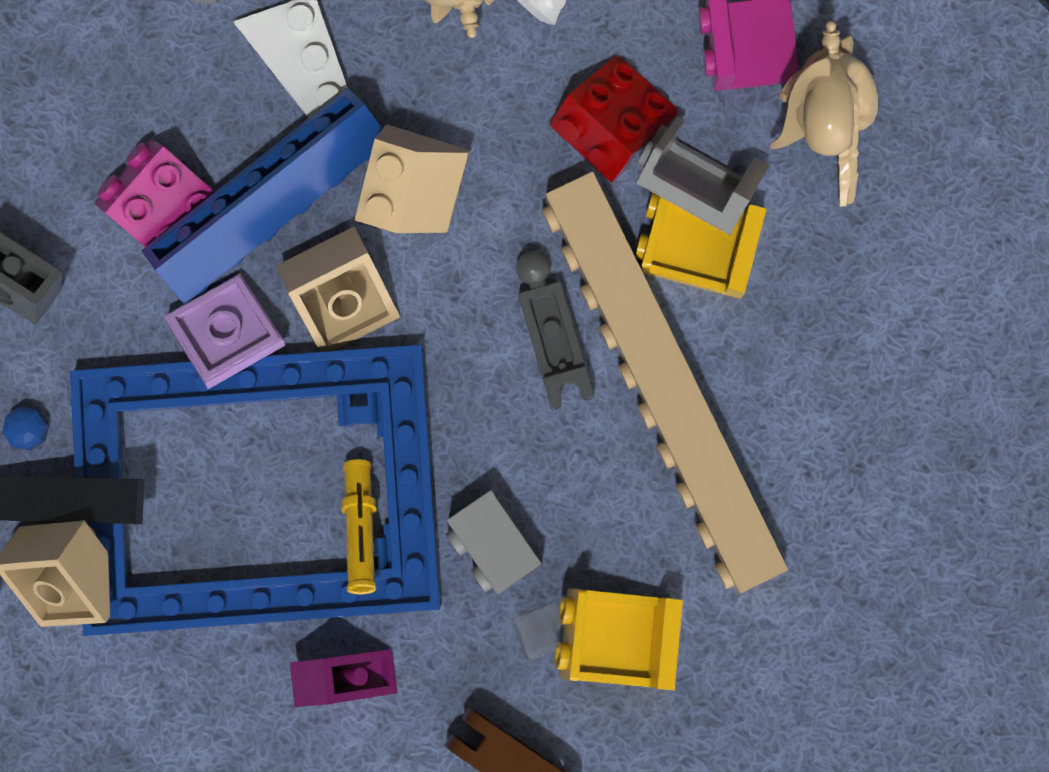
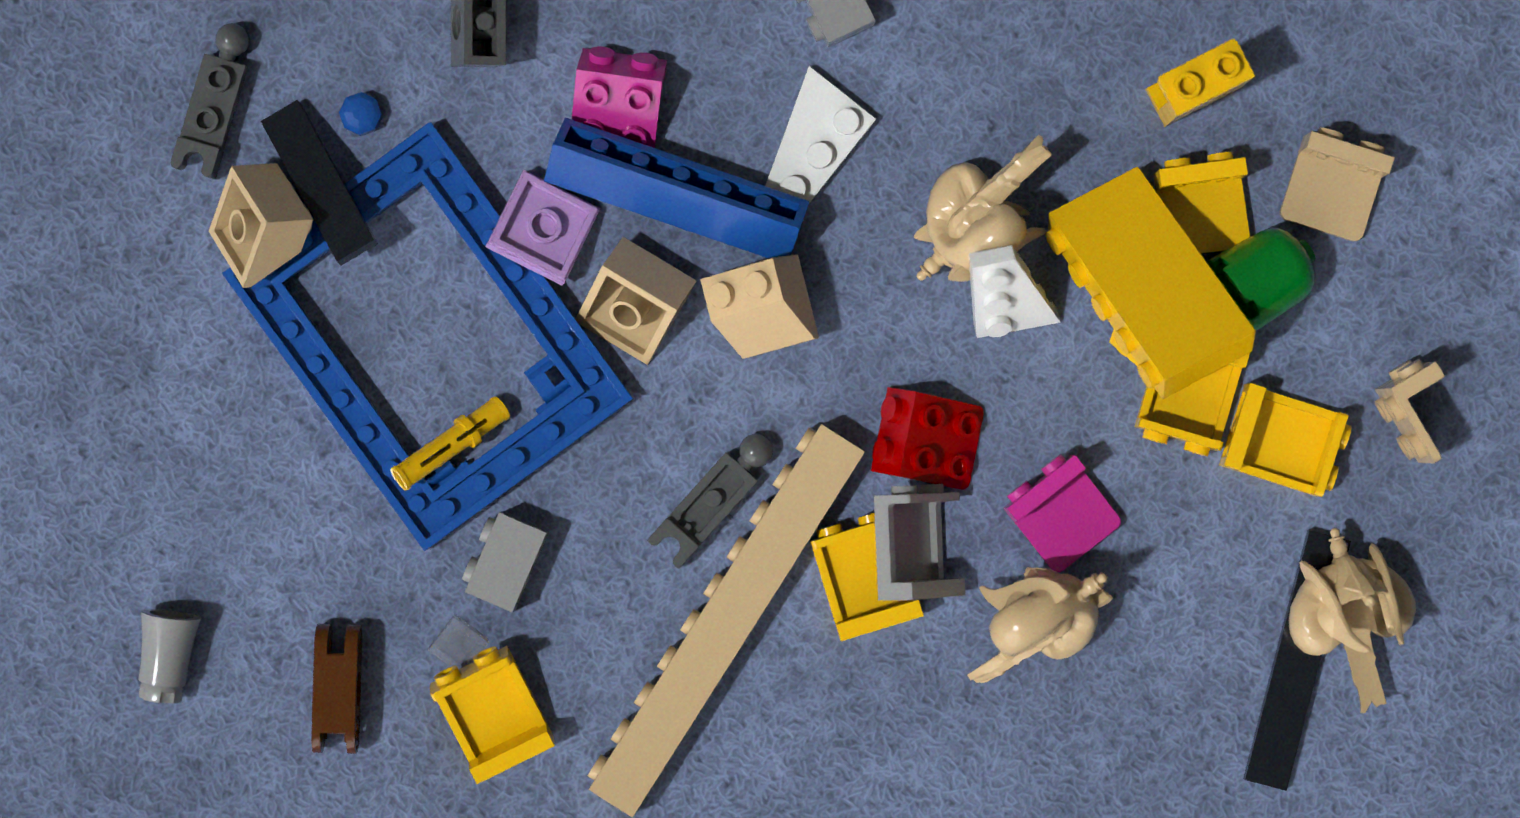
camera: 55 degrees right, 5 degrees up
(343, 678) = (319, 507): magenta slope -> none

